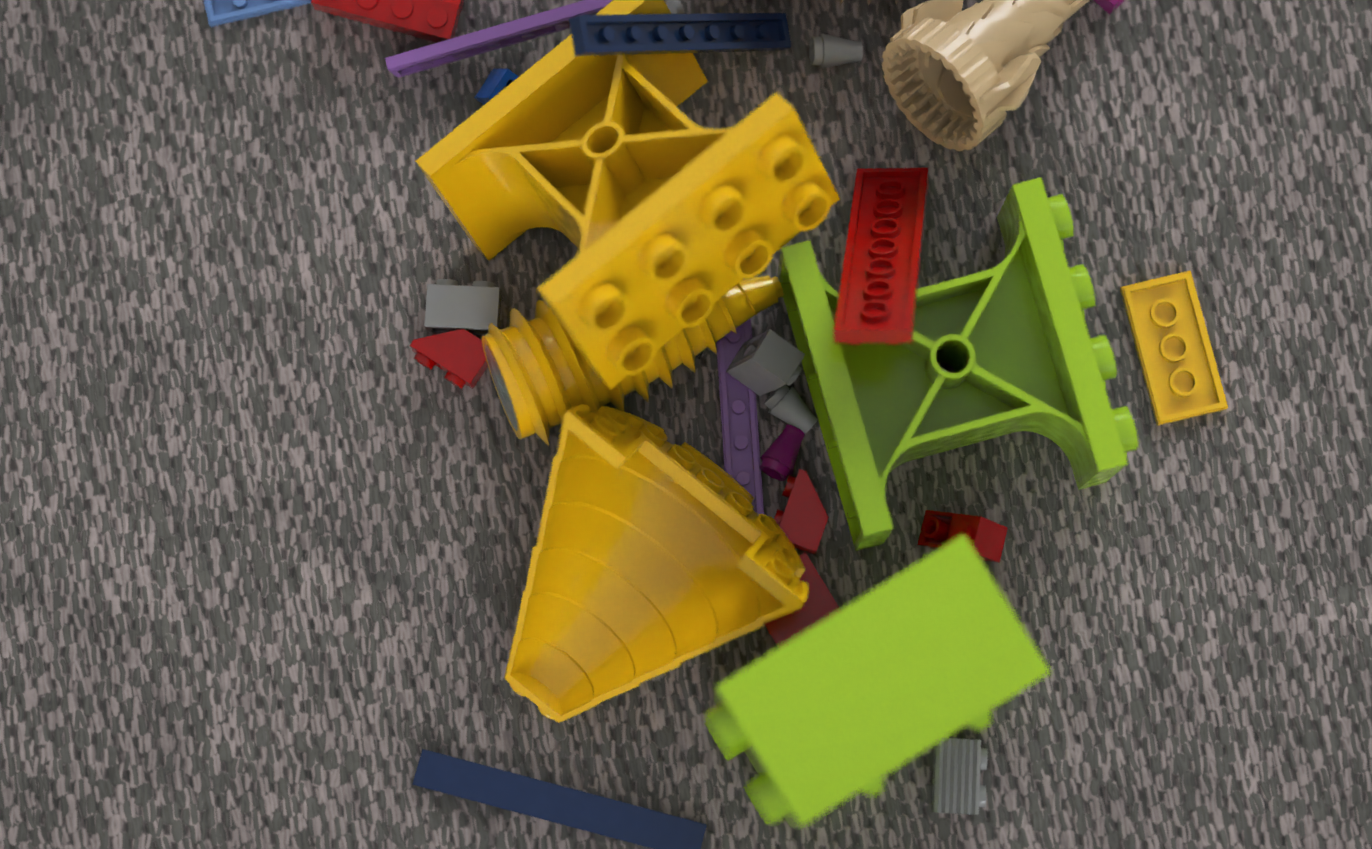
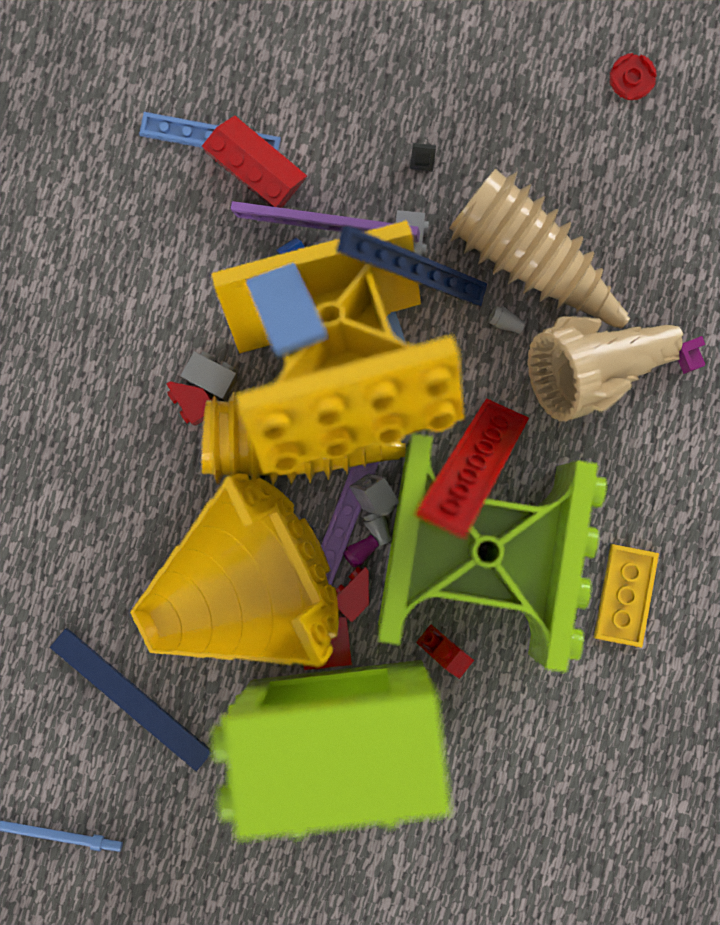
camera: 25 degrees right, 5 degrees up
(543, 159) = (286, 309): none -> medium blue tile

